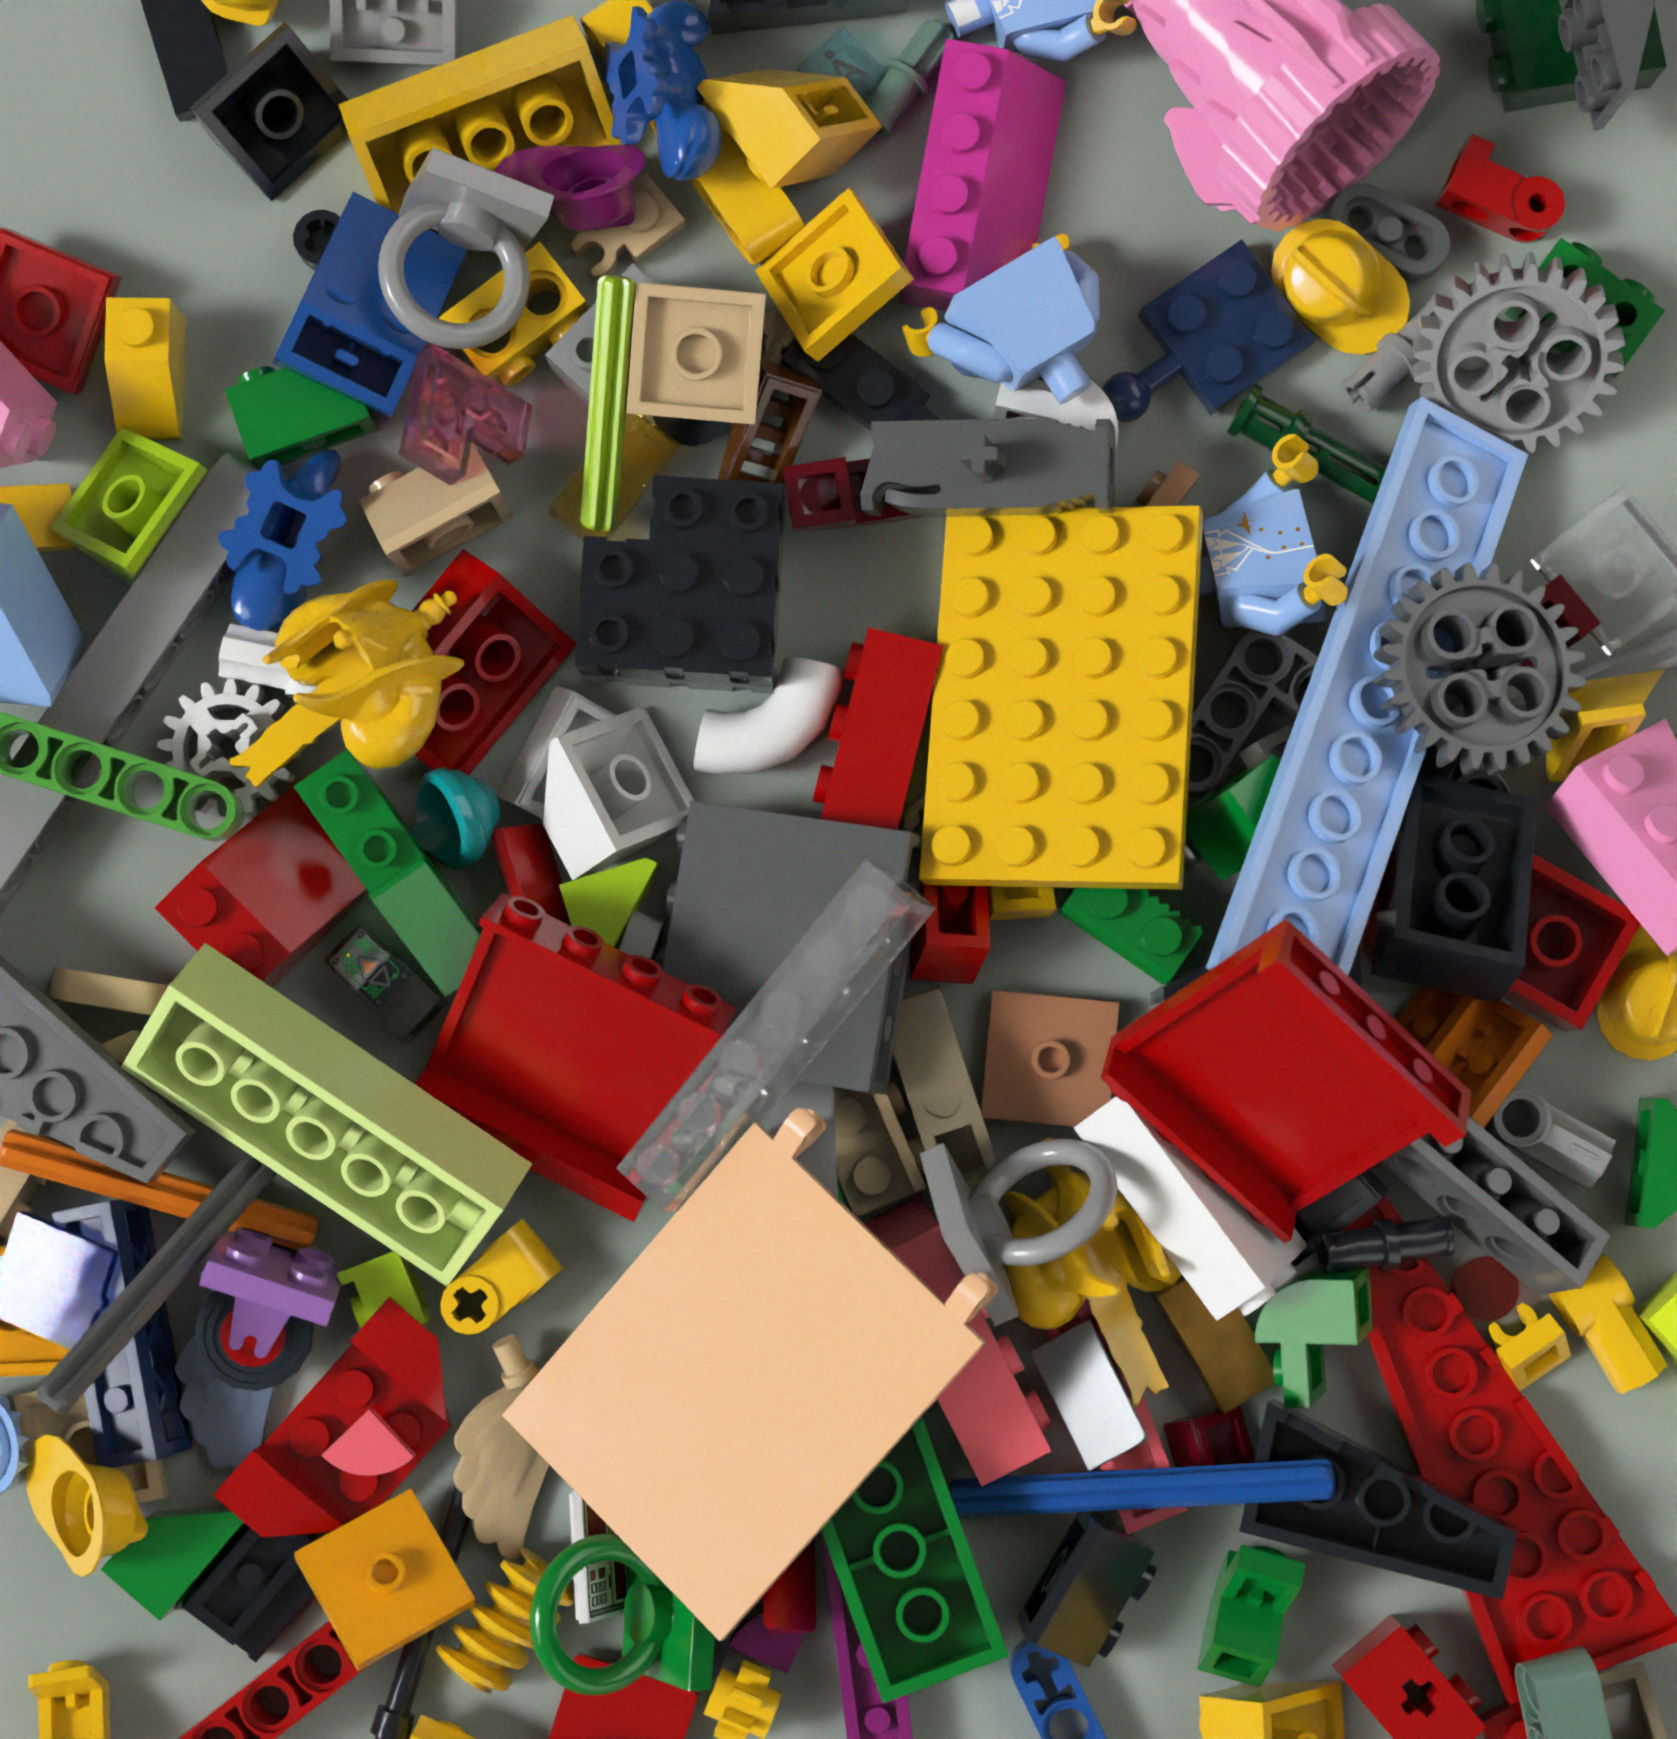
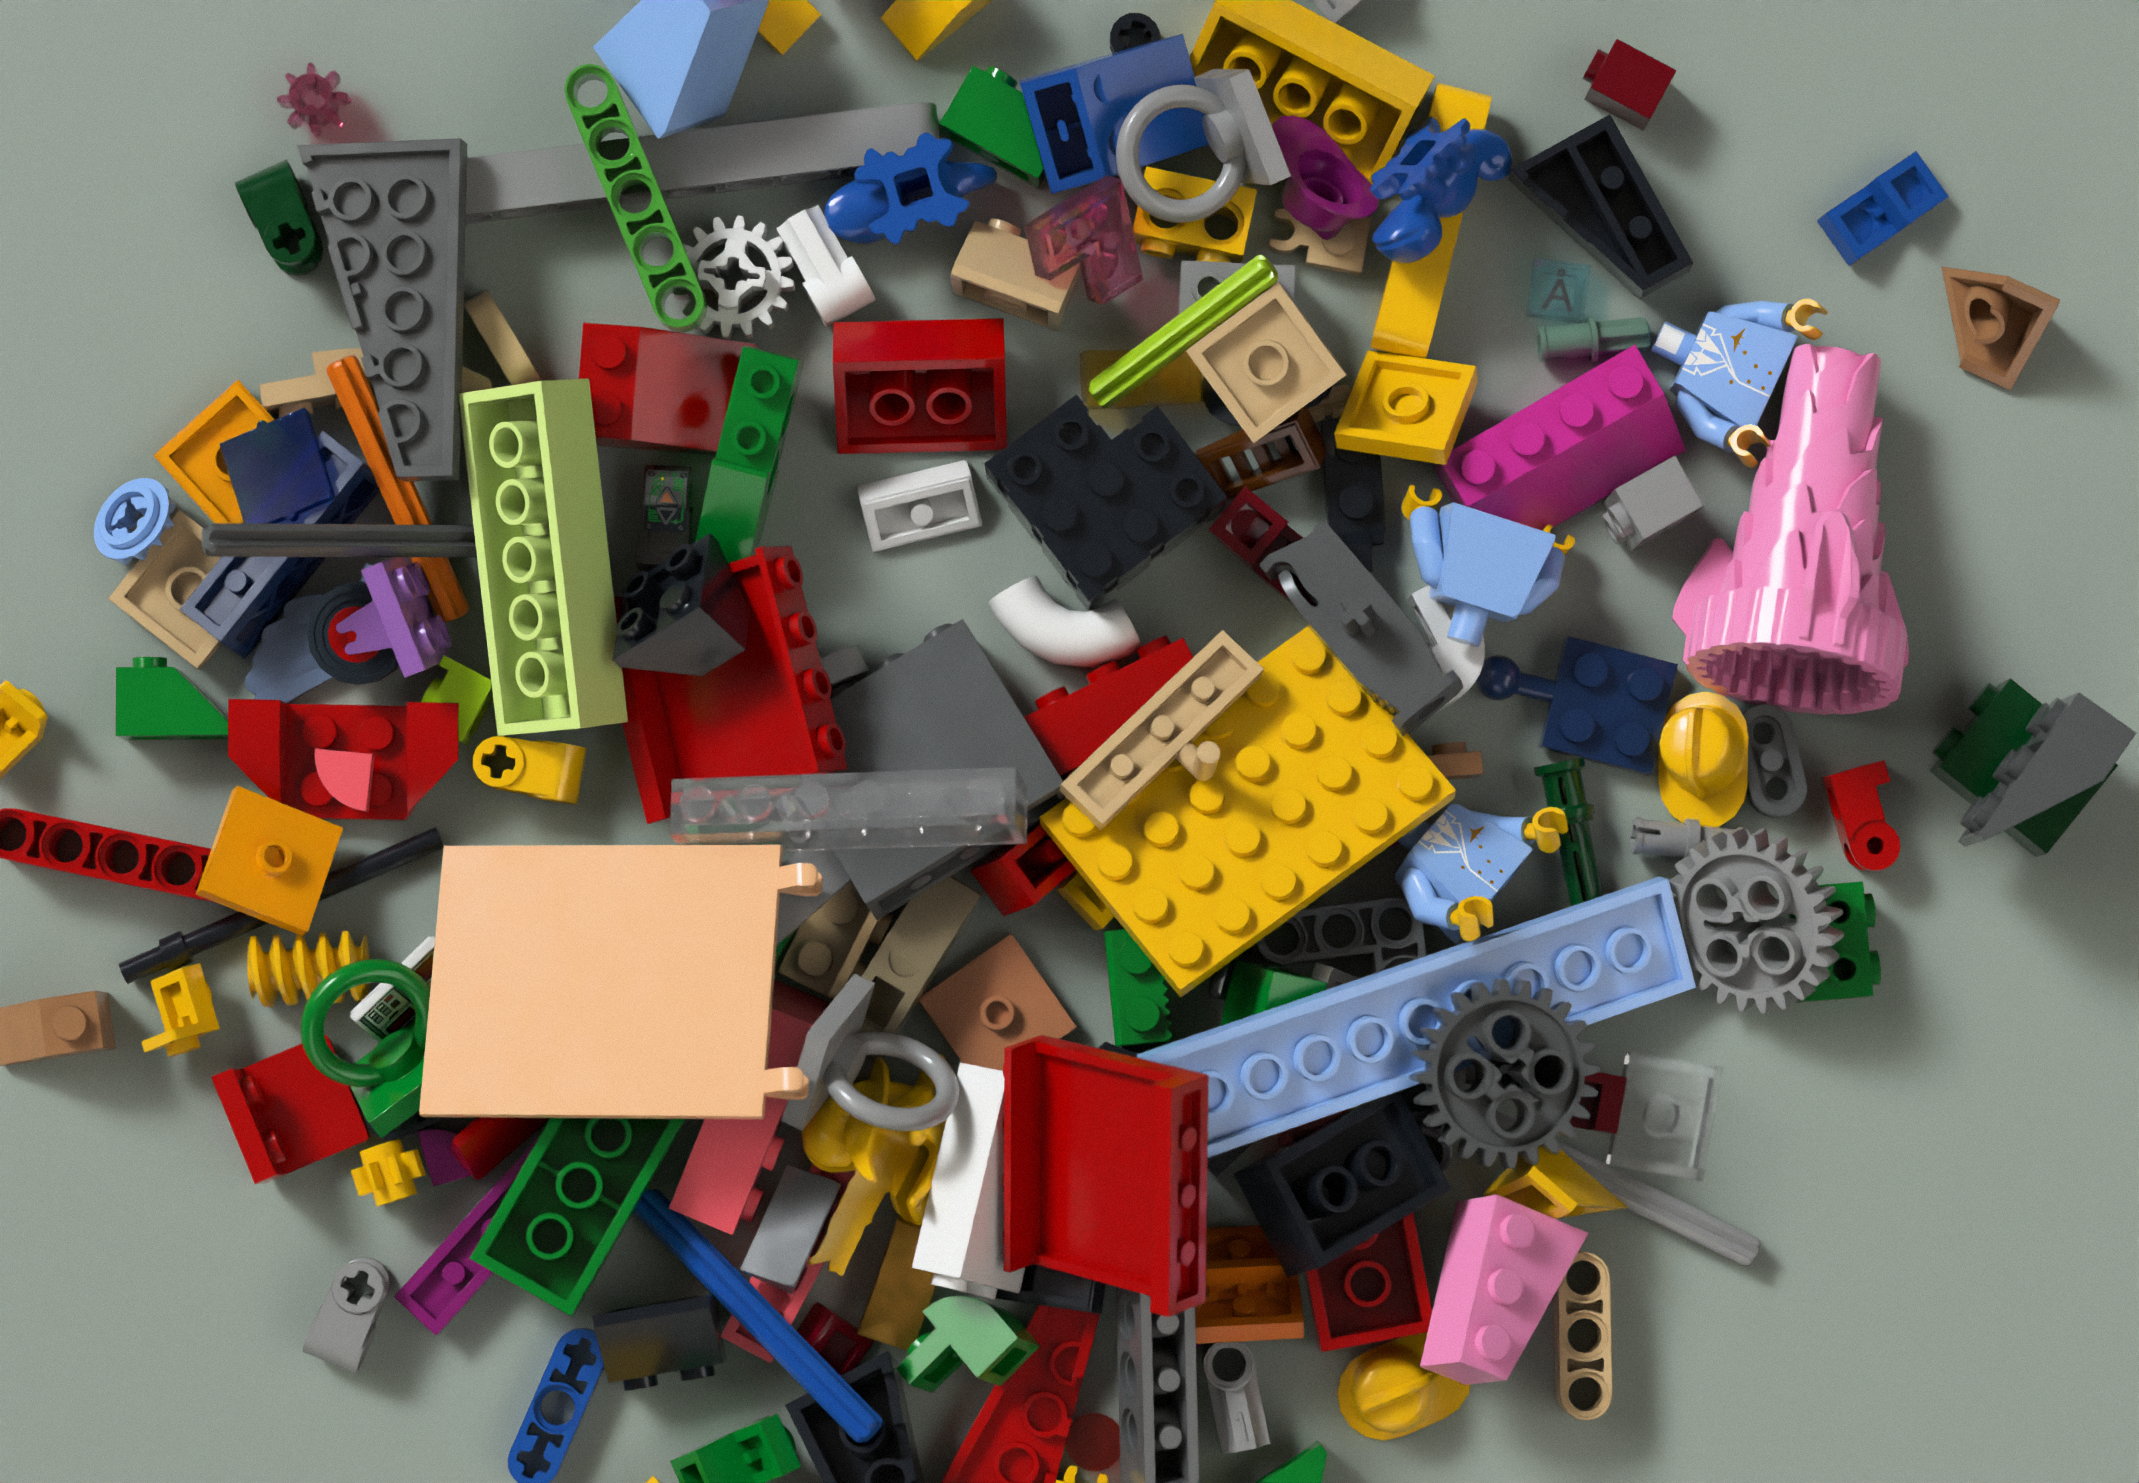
camera: 45 degrees right, 0 degrees up
(81, 1505) = (147, 618): yellow piece -> none
(128, 503) = (840, 66): lime slope -> none
(251, 1590) = (186, 780): black plate -> none
(368, 674) = (862, 331): yellow hair -> none
(455, 816) = (817, 470): teal hat -> none
(480, 1036) = (683, 613): none -> black slope
(497, 1465) = (407, 874): tan animal -> none
(530, 867) = (825, 553): red slope -> none
(609, 898) = (849, 621): lime slope -> none
(611, 792) = (924, 560): white slope -> none
(791, 122) = (1487, 286): yellow slope -> none
(939, 709) = (1164, 732): none -> tan plate
(1093, 141) = (1650, 505): none -> light grey brick
(1385, 1244) = (1063, 1343): black pin -> none

